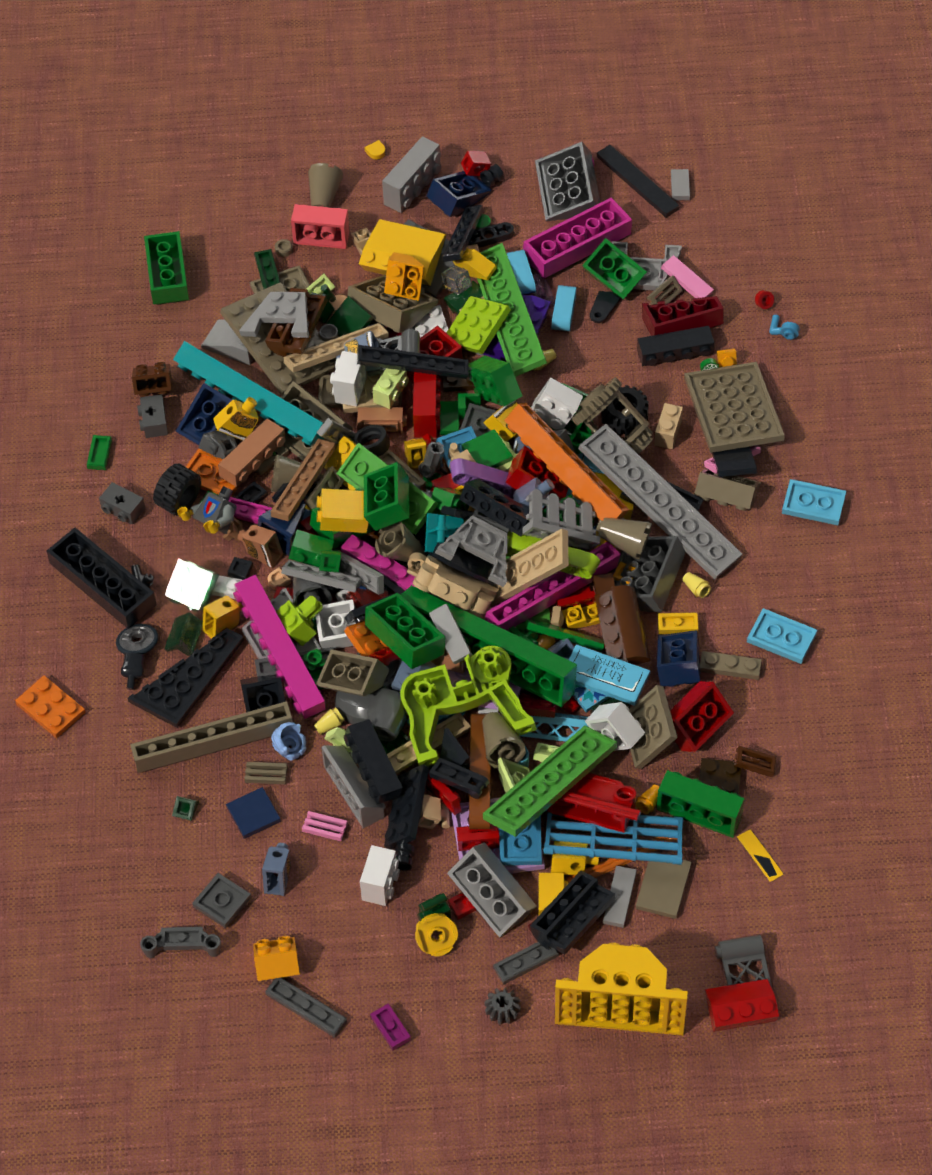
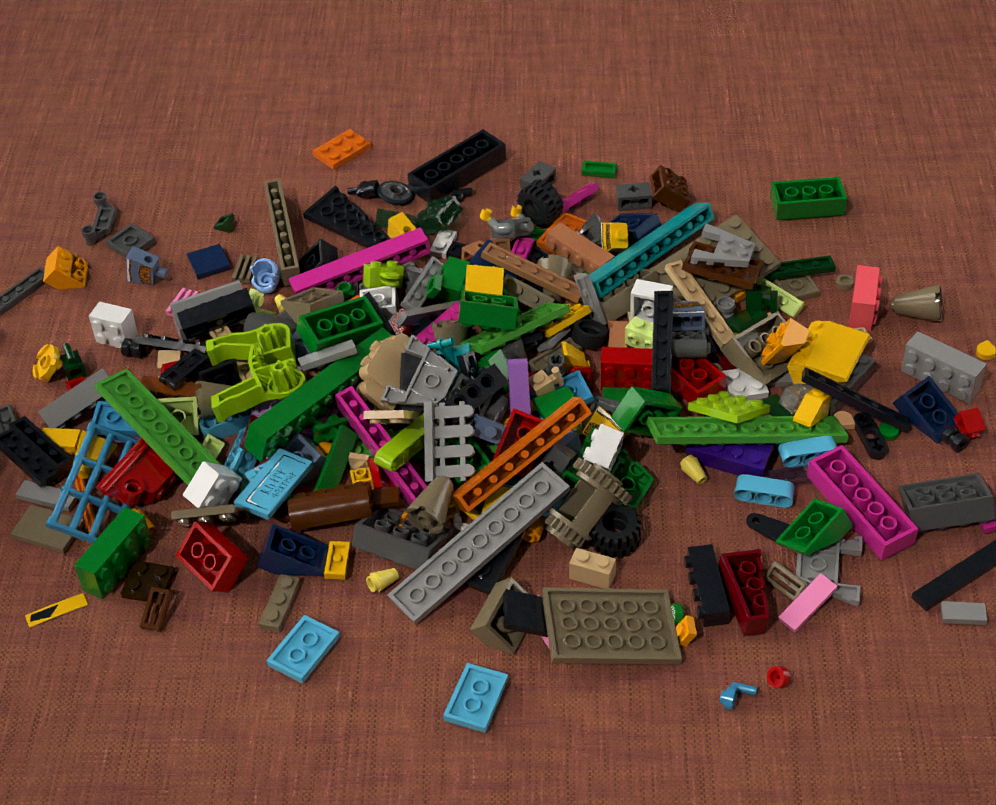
camera: 95 degrees right, 10 degrees down
(148, 463) = (576, 197): none -> dark pink plate

